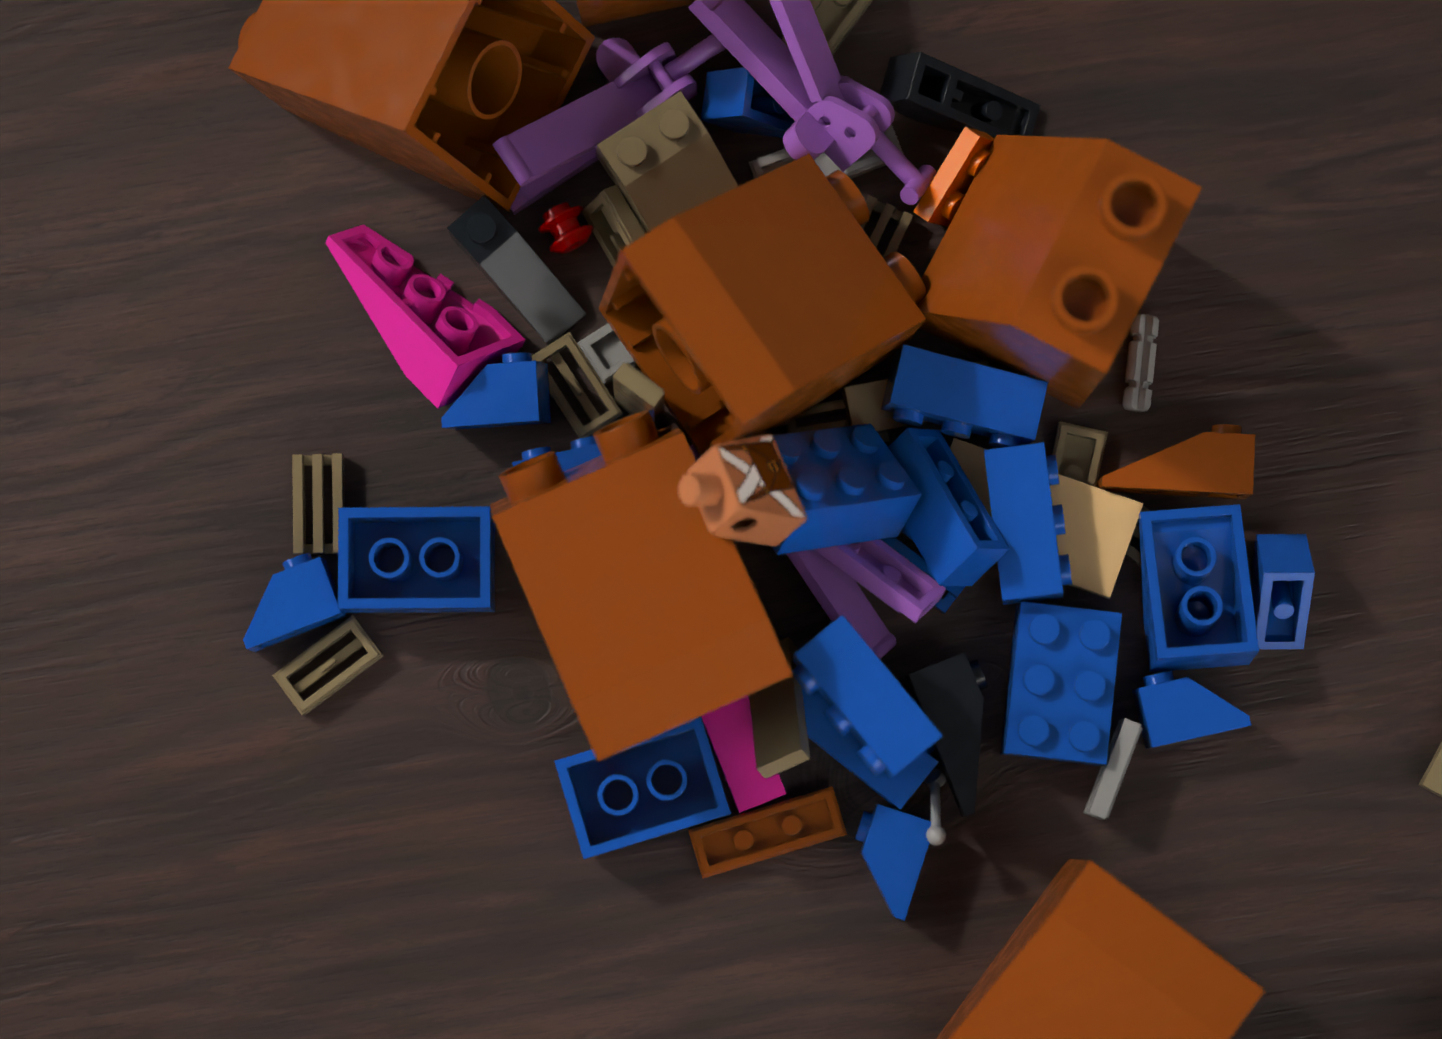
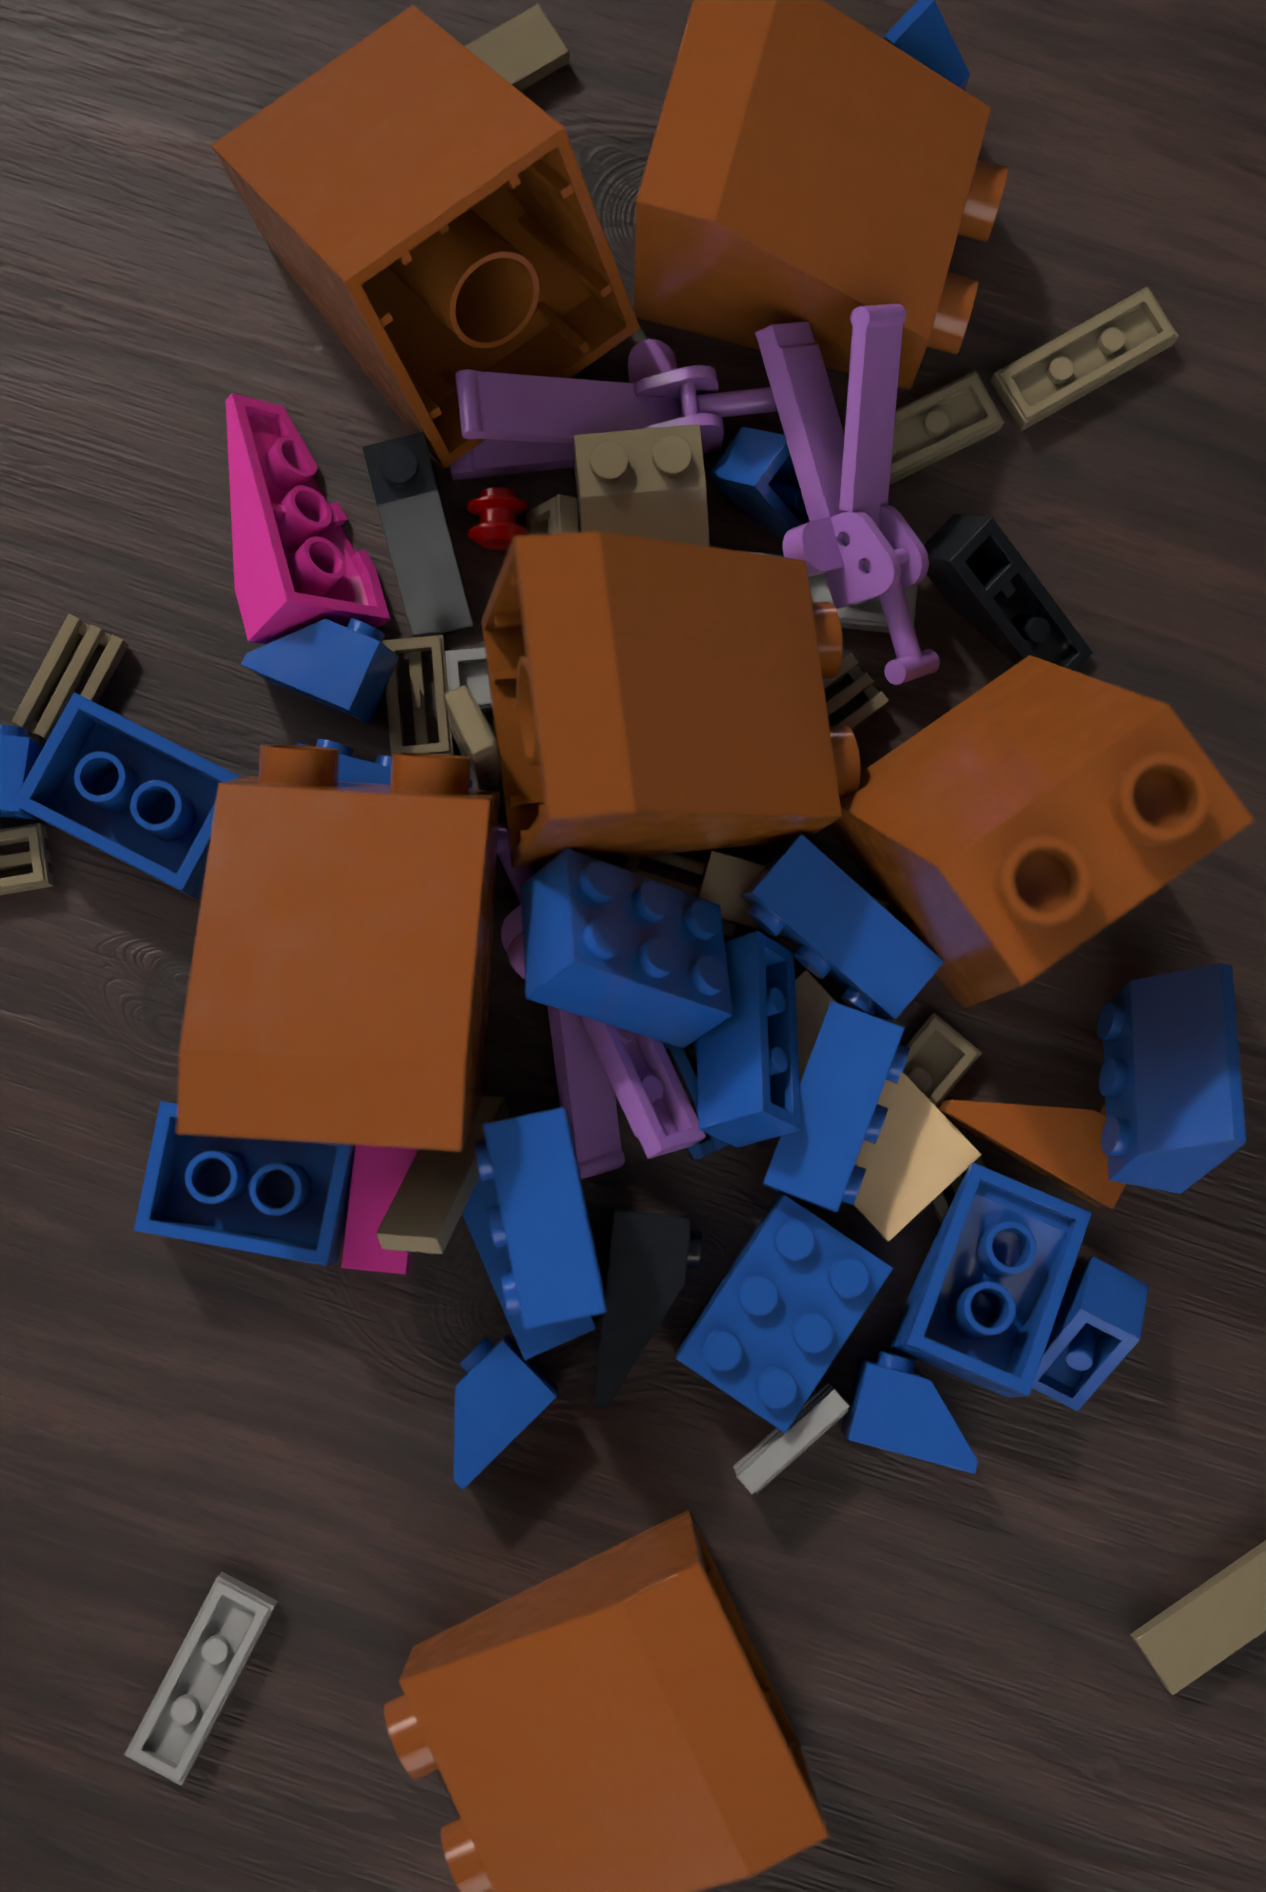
camera: 20 degrees right, 0 degrees up
(744, 491) = (519, 903): nougat torso -> none
(767, 832) = (368, 1304): dark orange tile -> none
(935, 834) = (547, 1413): light grey hinge -> none
(954, 177) = (957, 678): orange plate -> none
(1140, 363) = (1058, 996): light grey axle -> none
(1244, 382) = (1171, 1078): none -> blue slope

